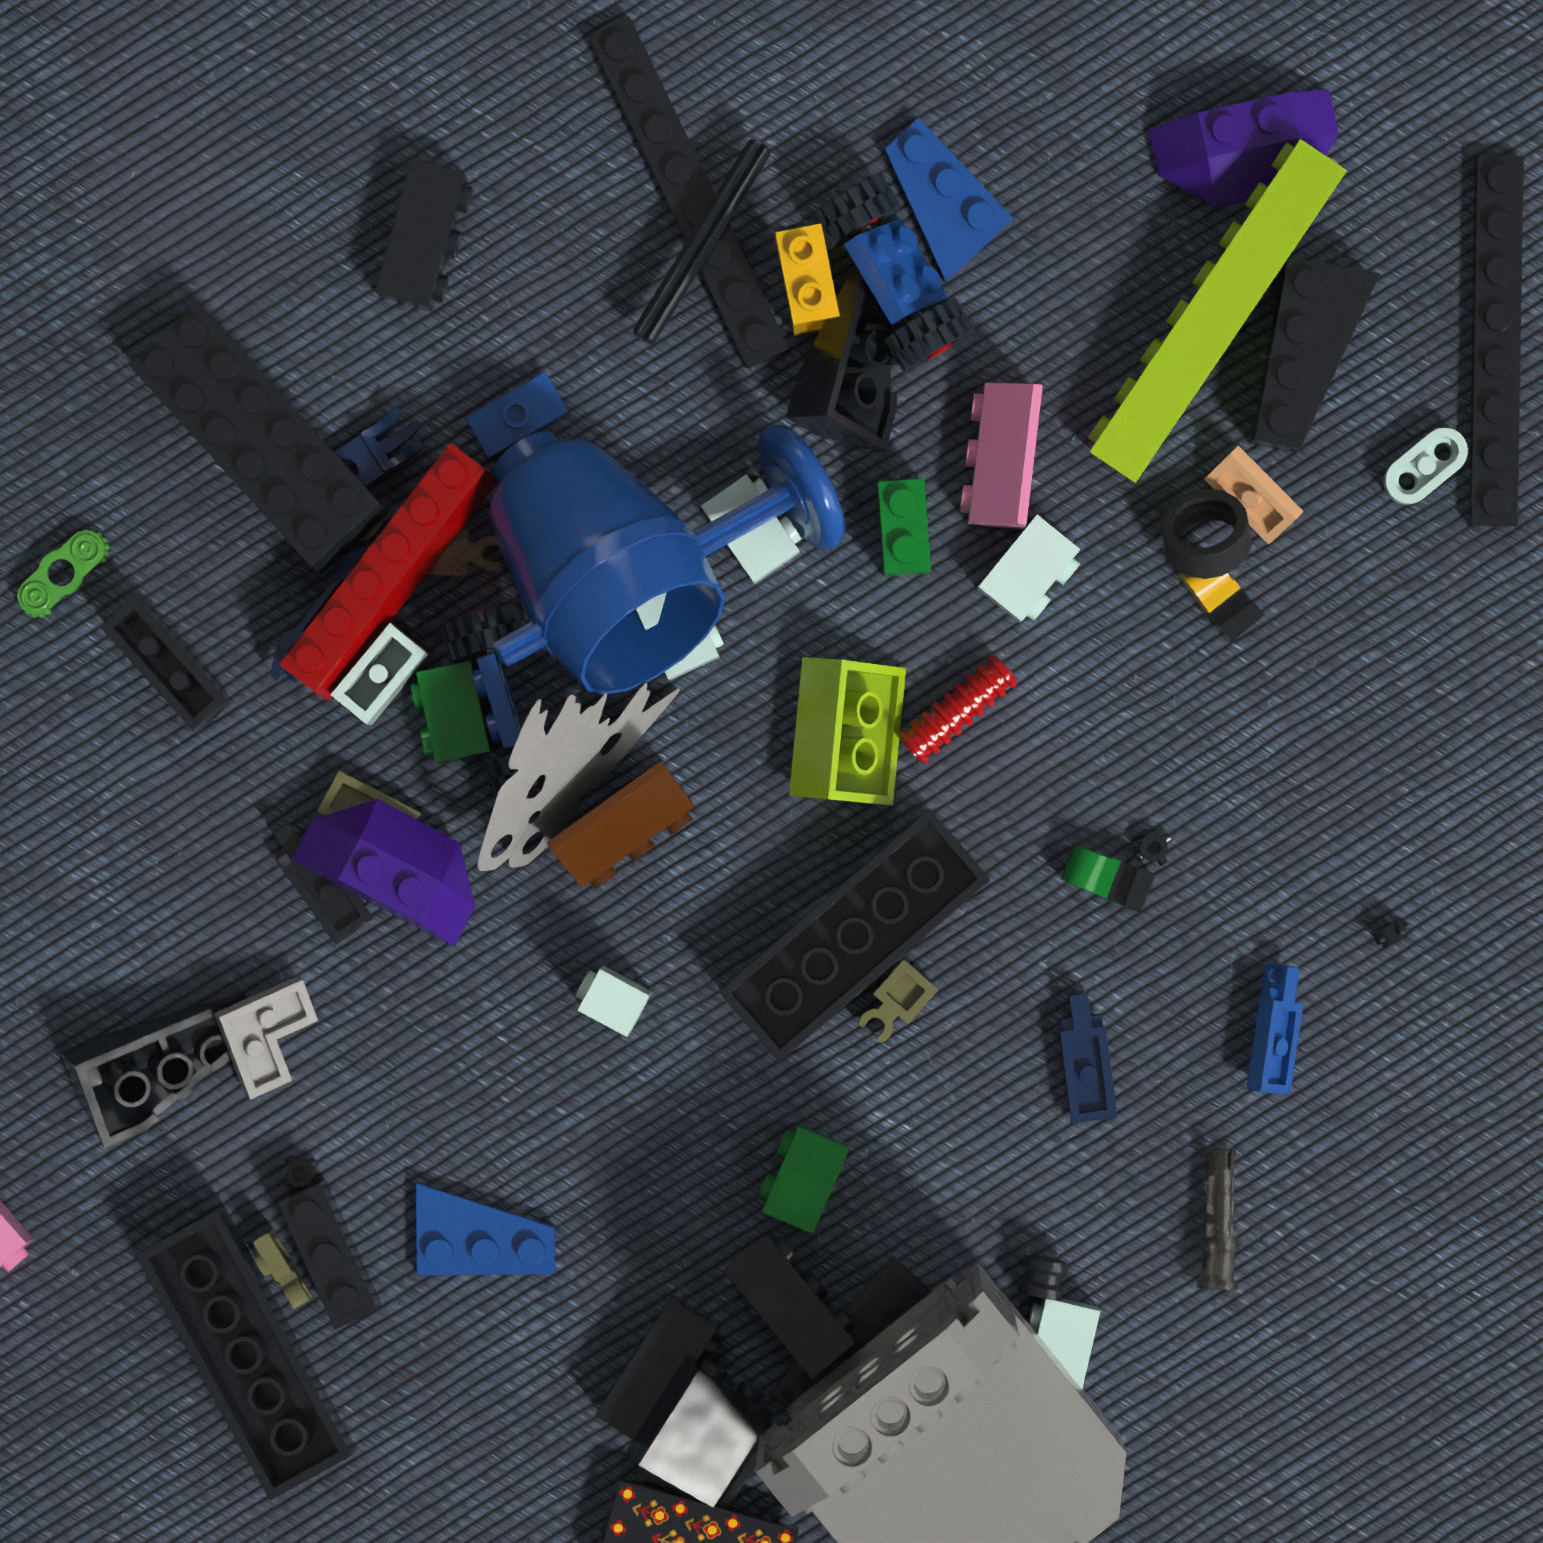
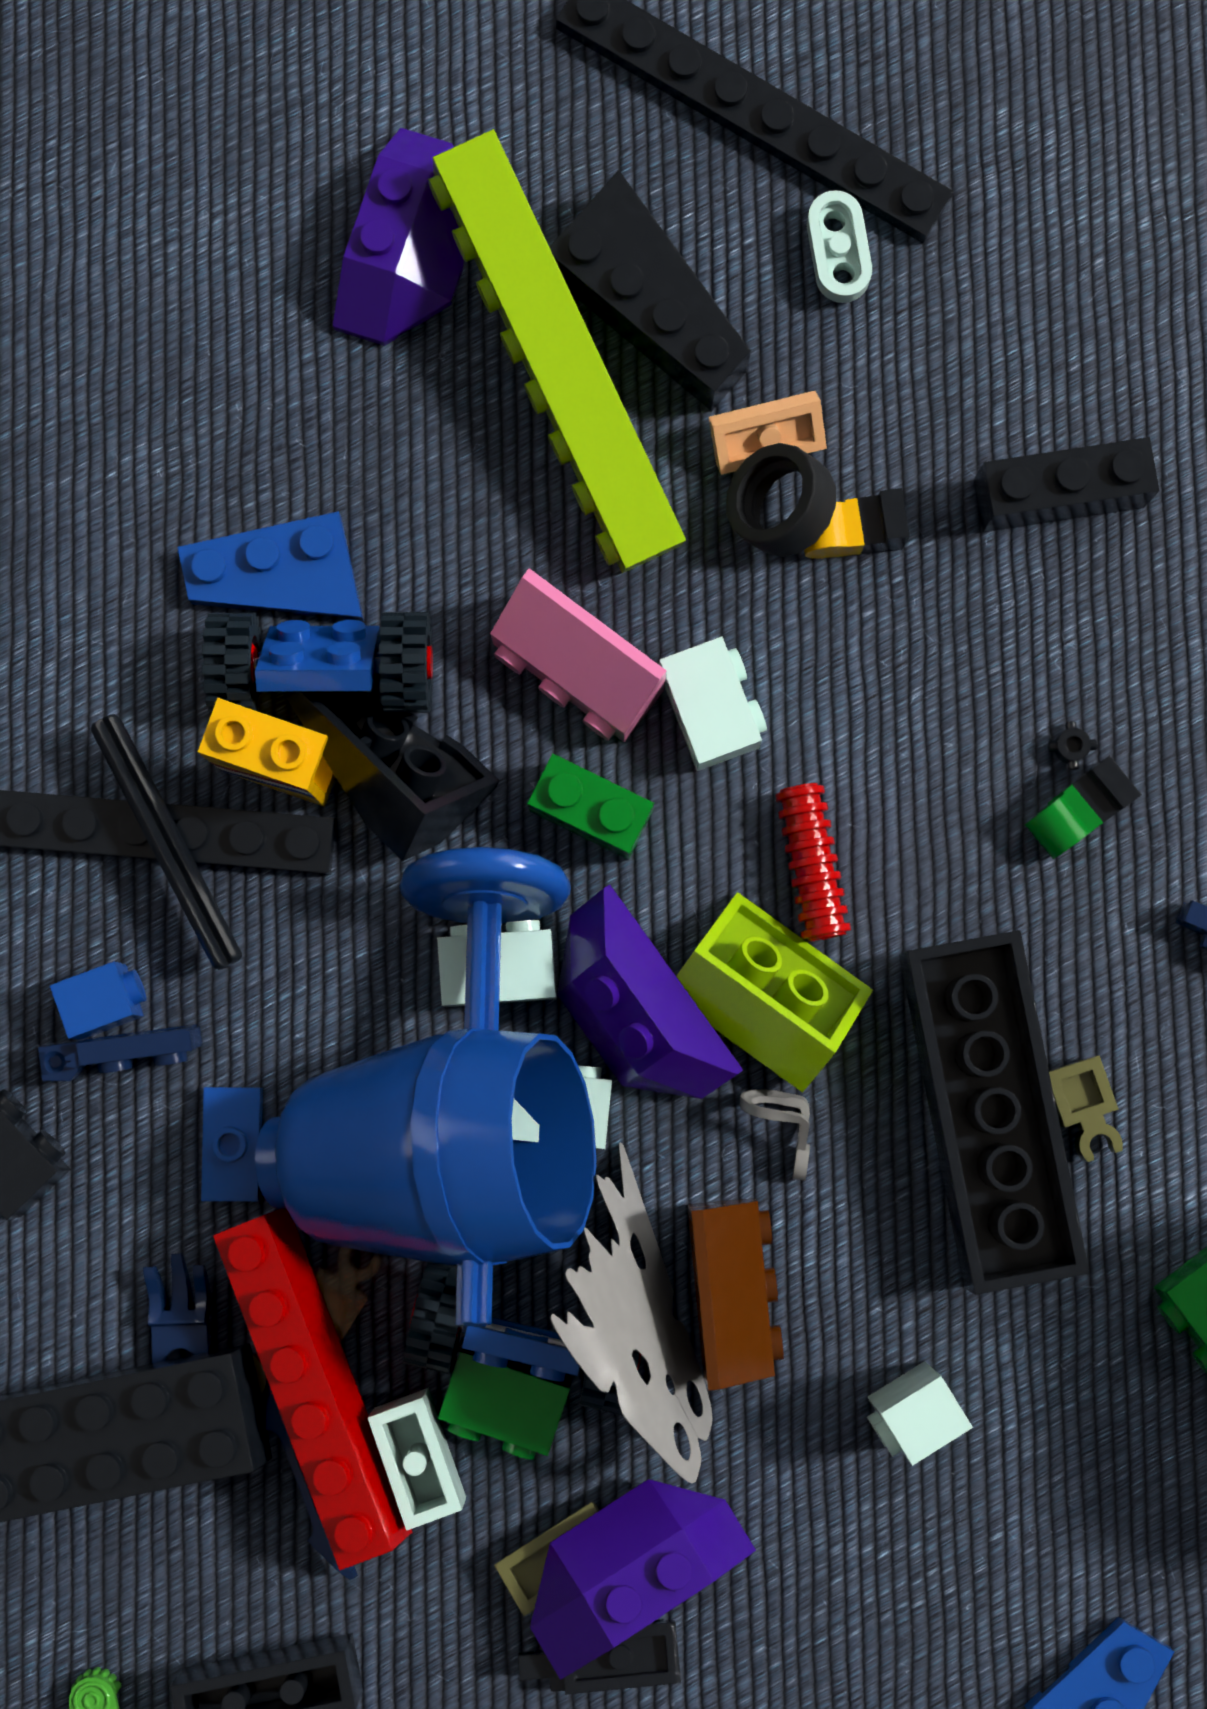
camera: 60 degrees left, 5 degrees down
(533, 294) = (115, 1052): none -> dark blue hinge
(563, 261) = (99, 1000): none -> blue brick
(765, 762) = (751, 1097): none -> light grey piece
(781, 643) = (637, 1006): none -> dark purple wedge
(1340, 733) = (1066, 484): none -> black brick

